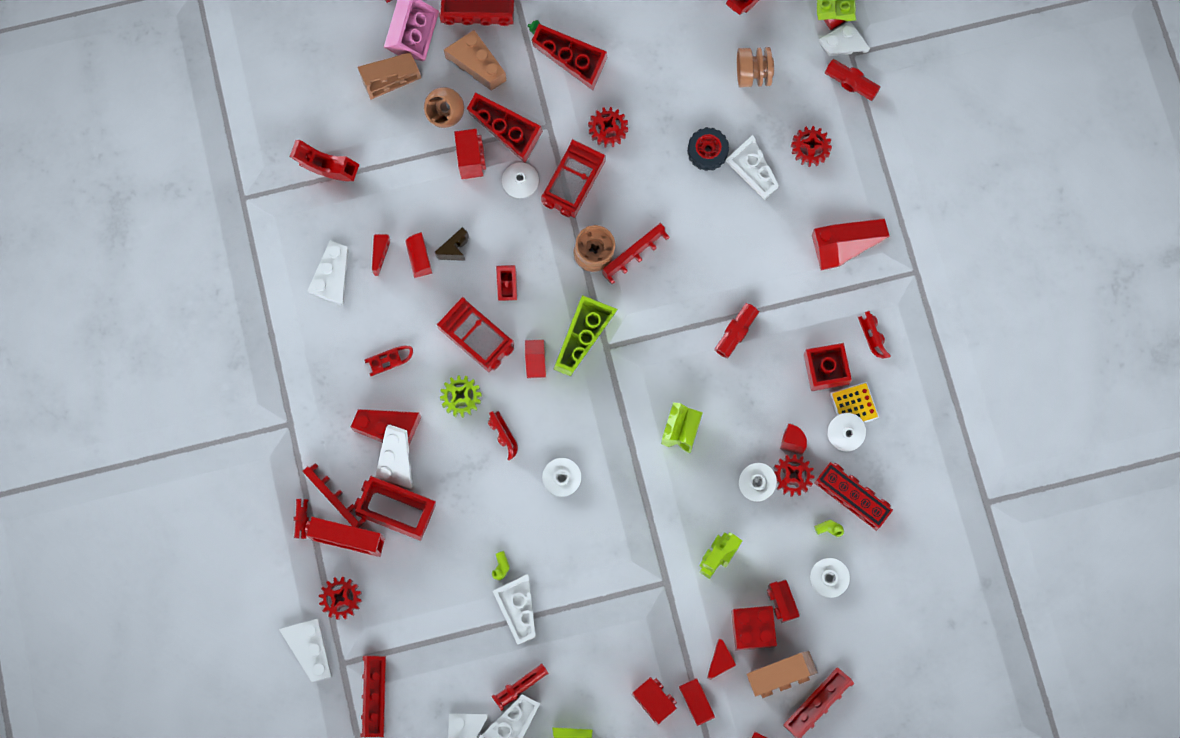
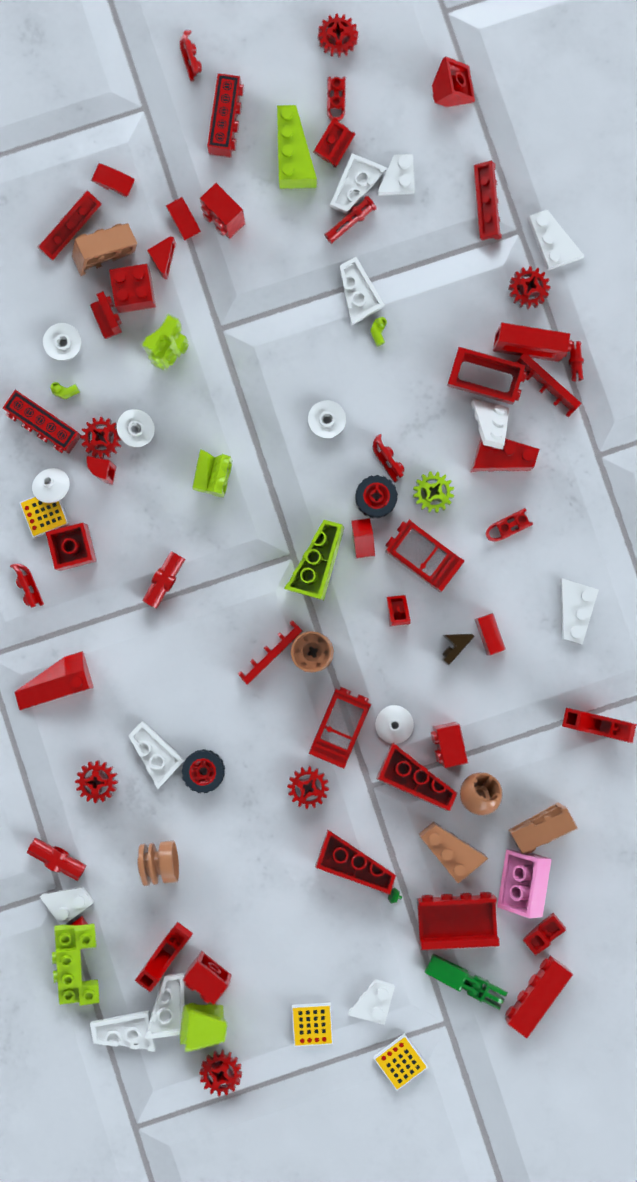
camera: 175 degrees right, 10 degrees up
(380, 247) = (530, 636): red slope -> none
(528, 401) = (367, 503): none -> black wheel

